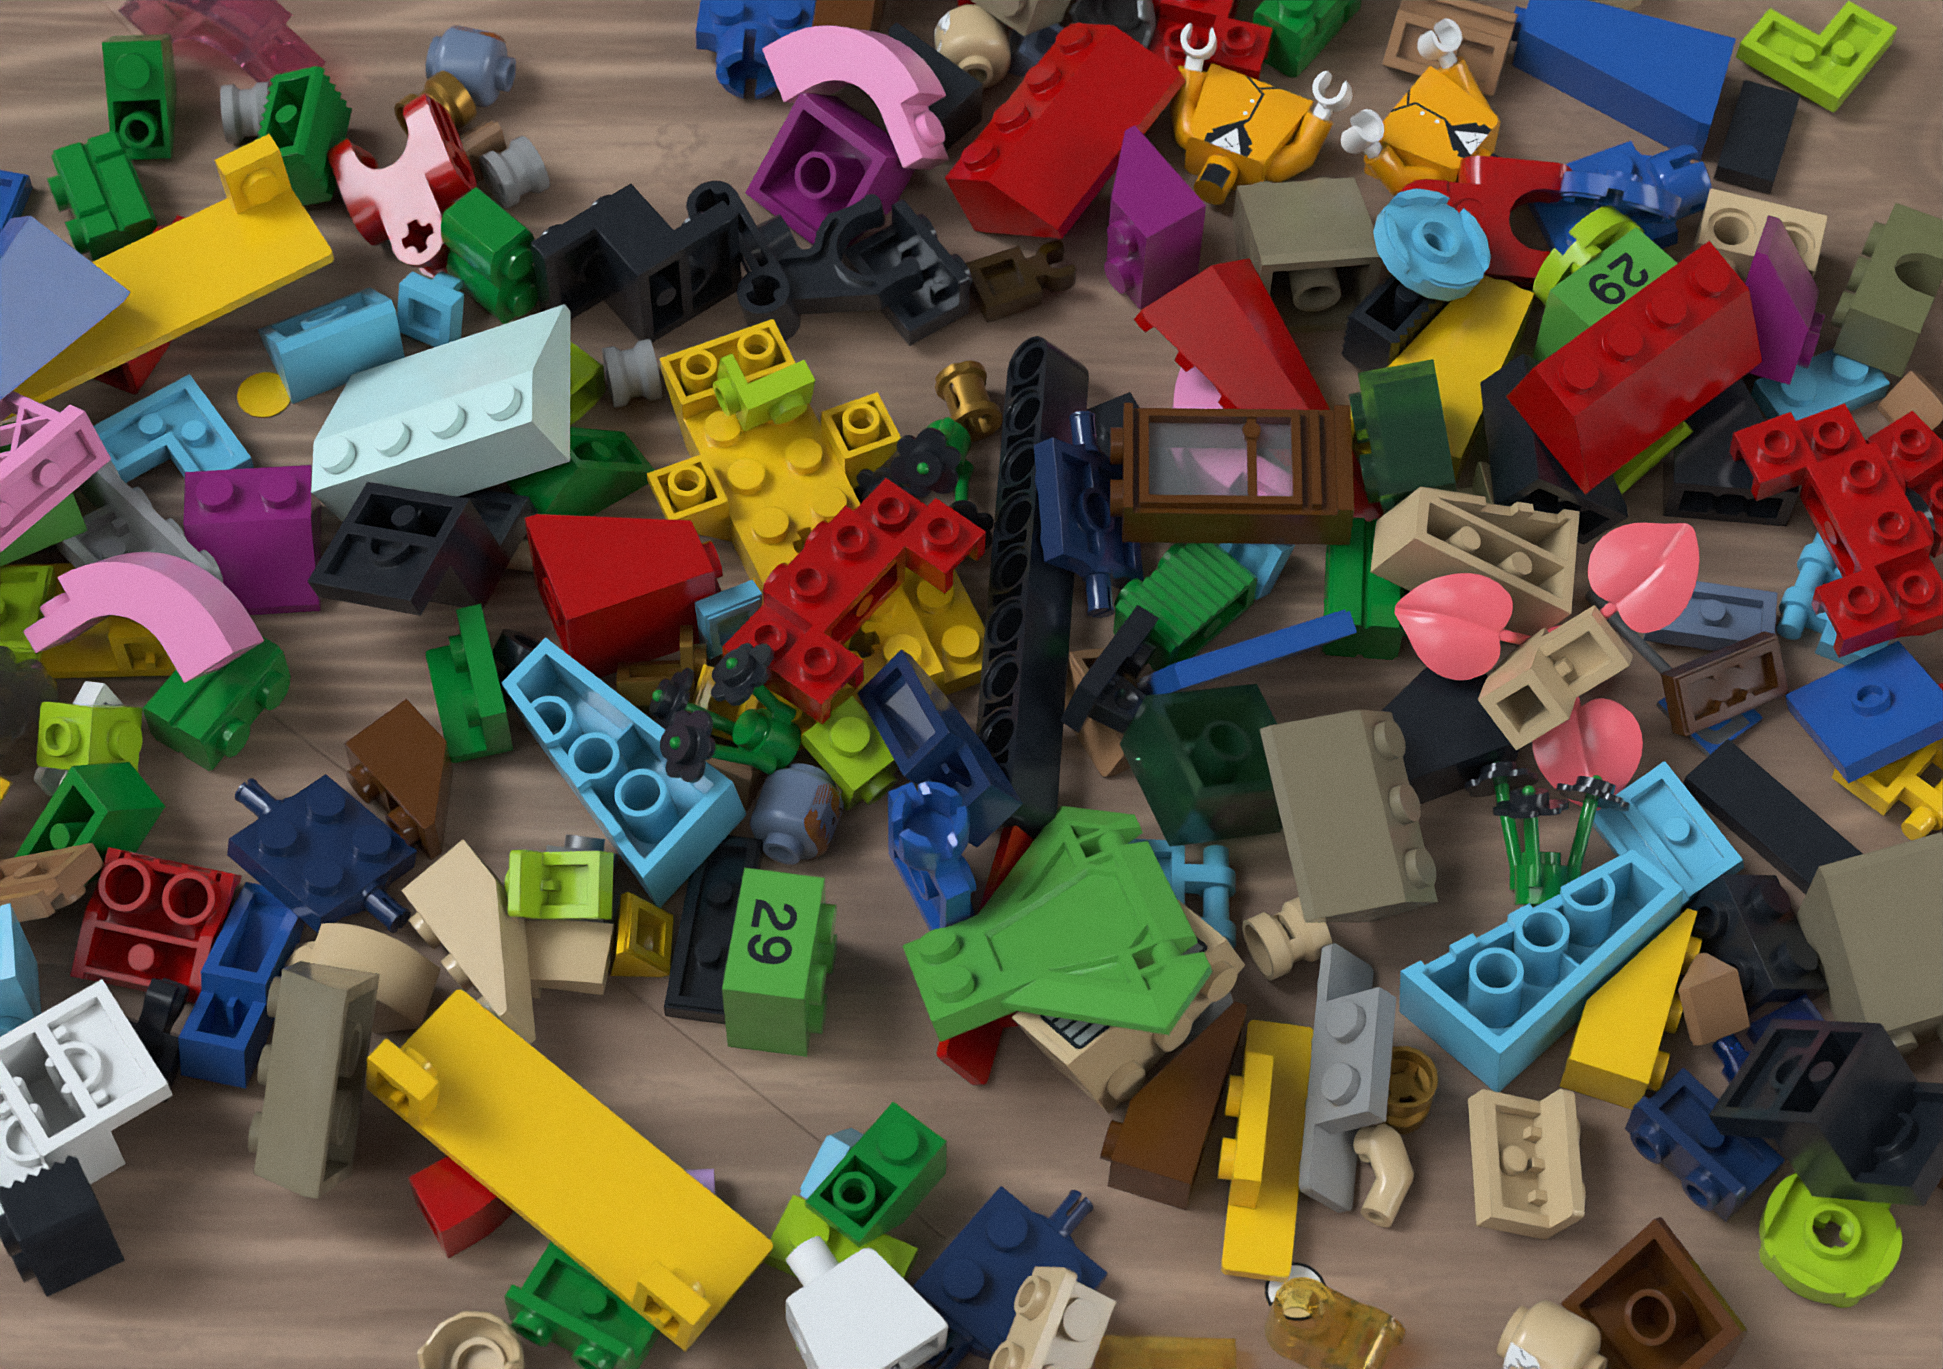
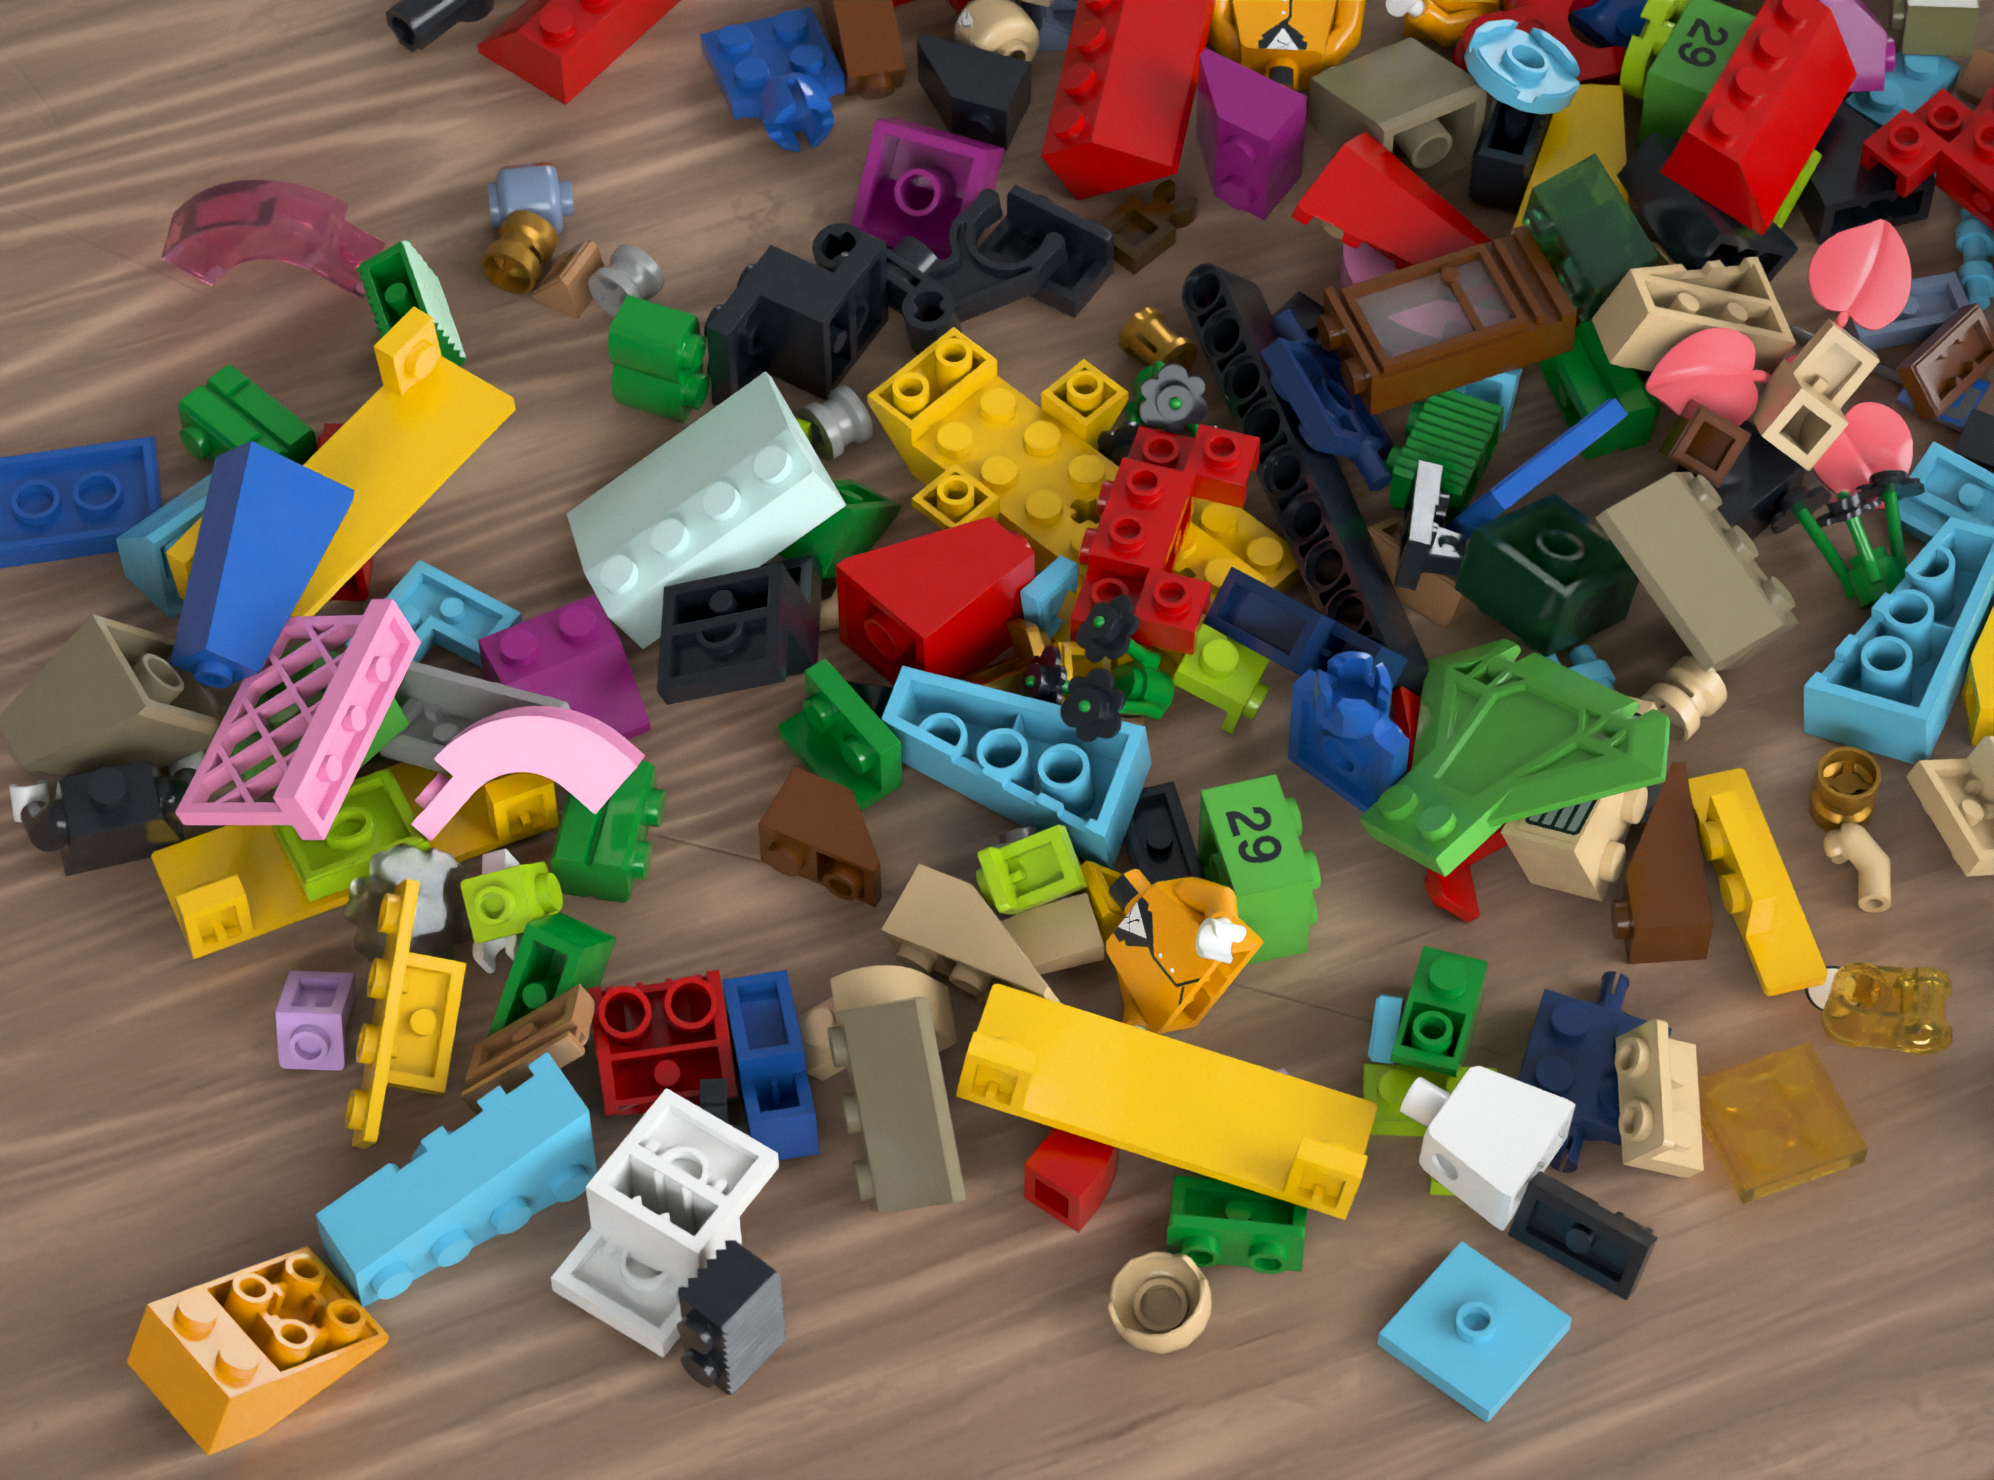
camera: 20 degrees left, 5 degrees down
(141, 93) = (226, 322): green slope -> none
(242, 110) = (339, 310): light grey wheel -> none
(262, 395) = (489, 559): yellow sticker -> none
(322, 854) = (779, 930): dark blue plate -> none
(333, 342) = (537, 487): medium azure slope -> none
(411, 194) = (547, 331): piece -> none
(431, 308) = (616, 428): medium azure tile -> none
(657, 1017) = (1176, 949): none -> light orange torso
(774, 397) = (982, 401): lime bracket -> none
(797, 813) = (1195, 746): sand blue head -> none
(886, 69) = (896, 74): bright pink arch -> none
(1345, 1075) = (1798, 786): light grey bracket -> none
(1424, 686) = (1704, 442): none -> reddish brown slope

